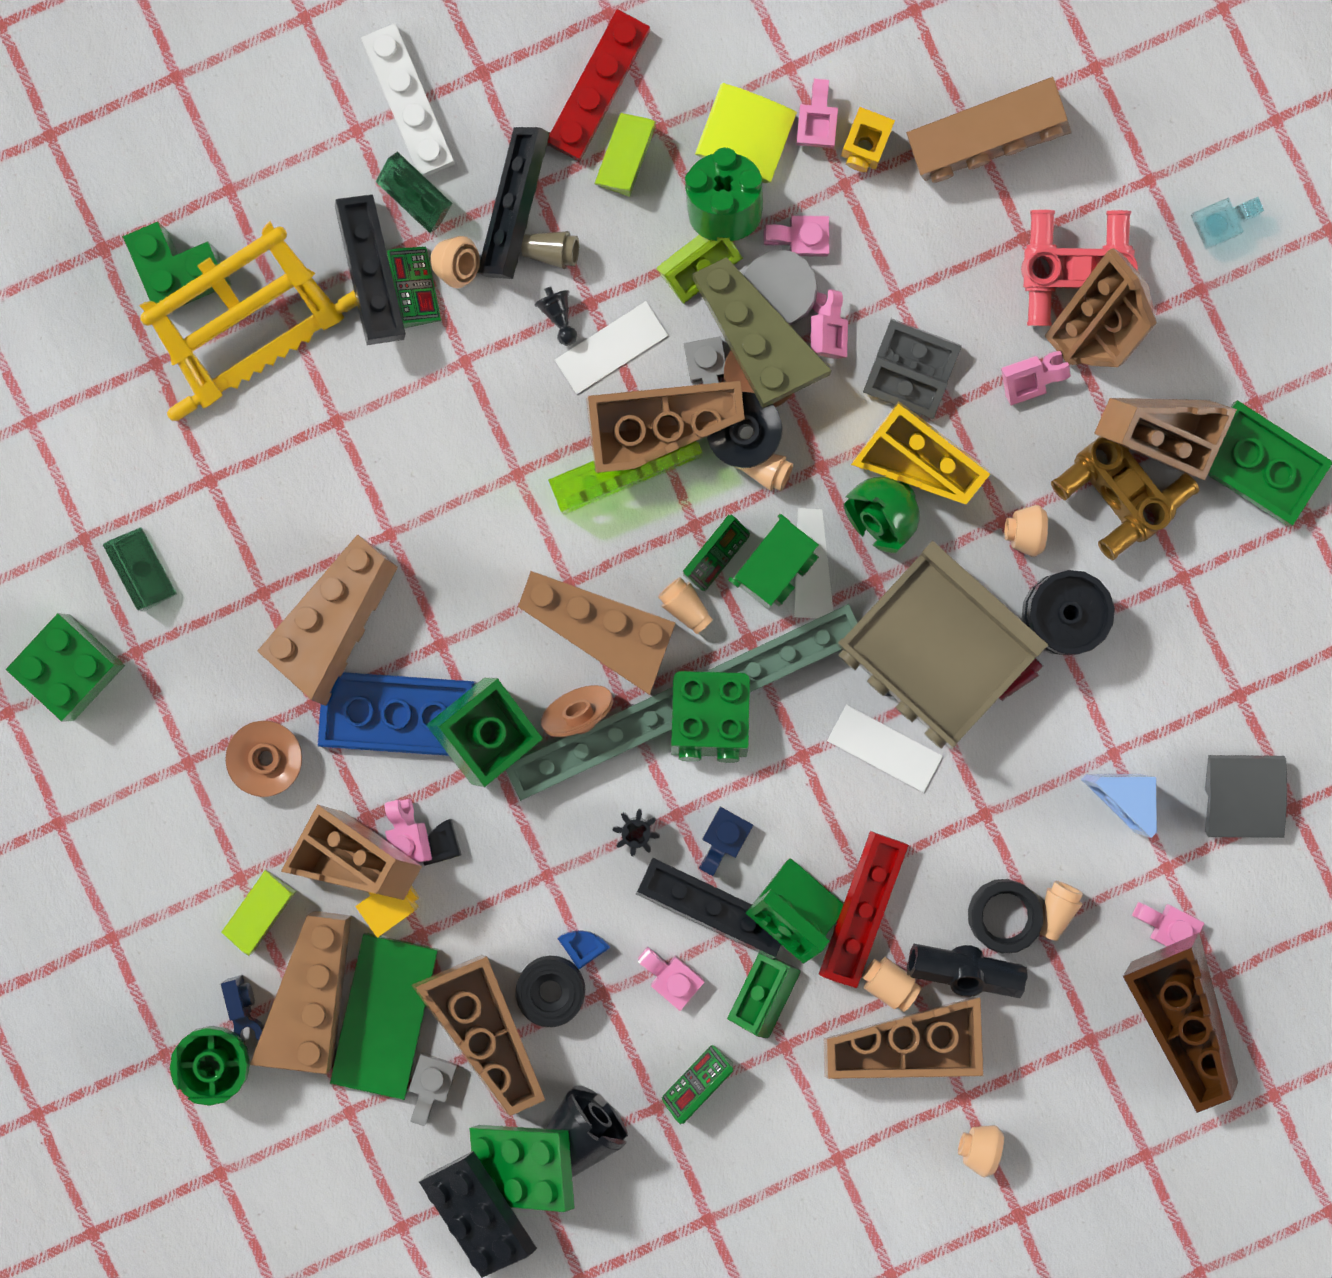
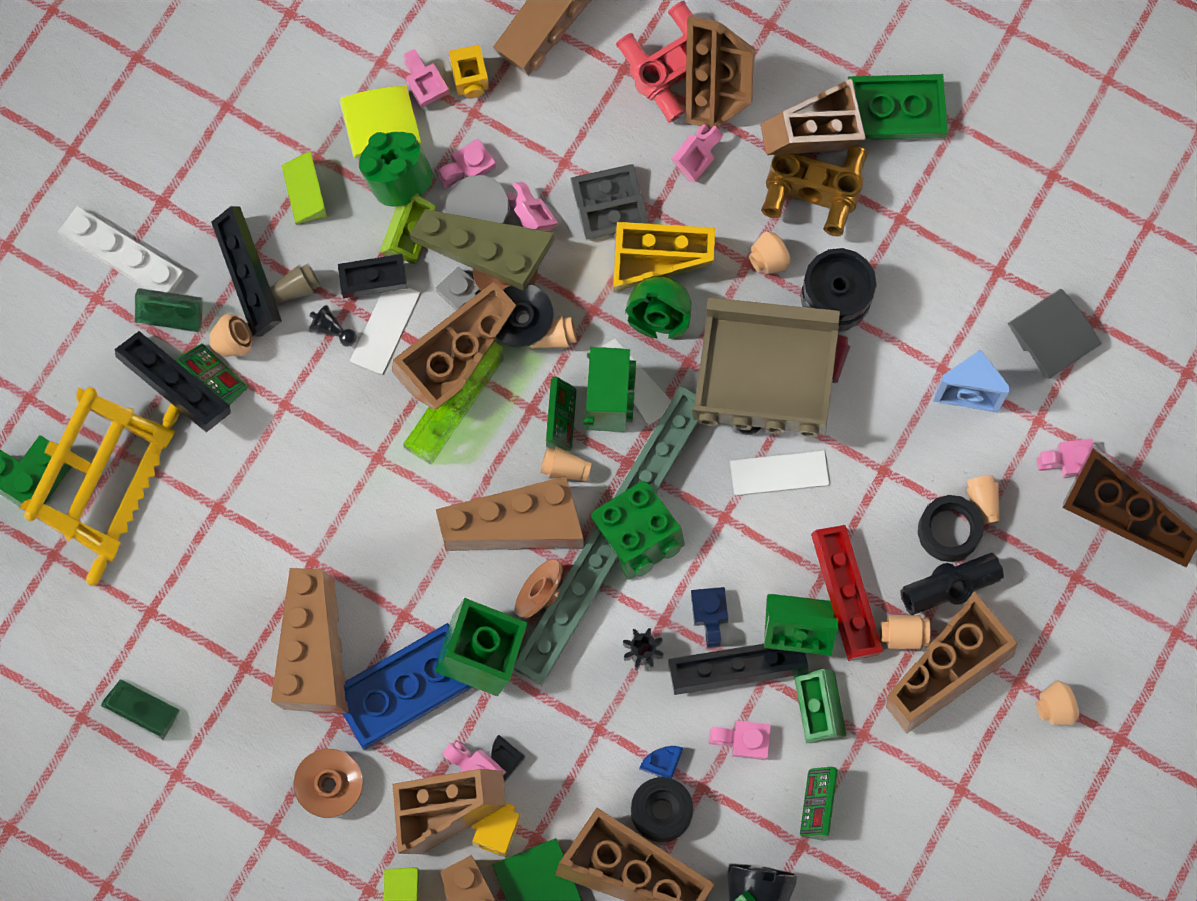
camera: 40 degrees left, 15 degrees down
(65, 667) = (130, 816): green brick -> none
(598, 85) = (252, 157): red plate -> none
(631, 290) = (372, 276): none -> black plate

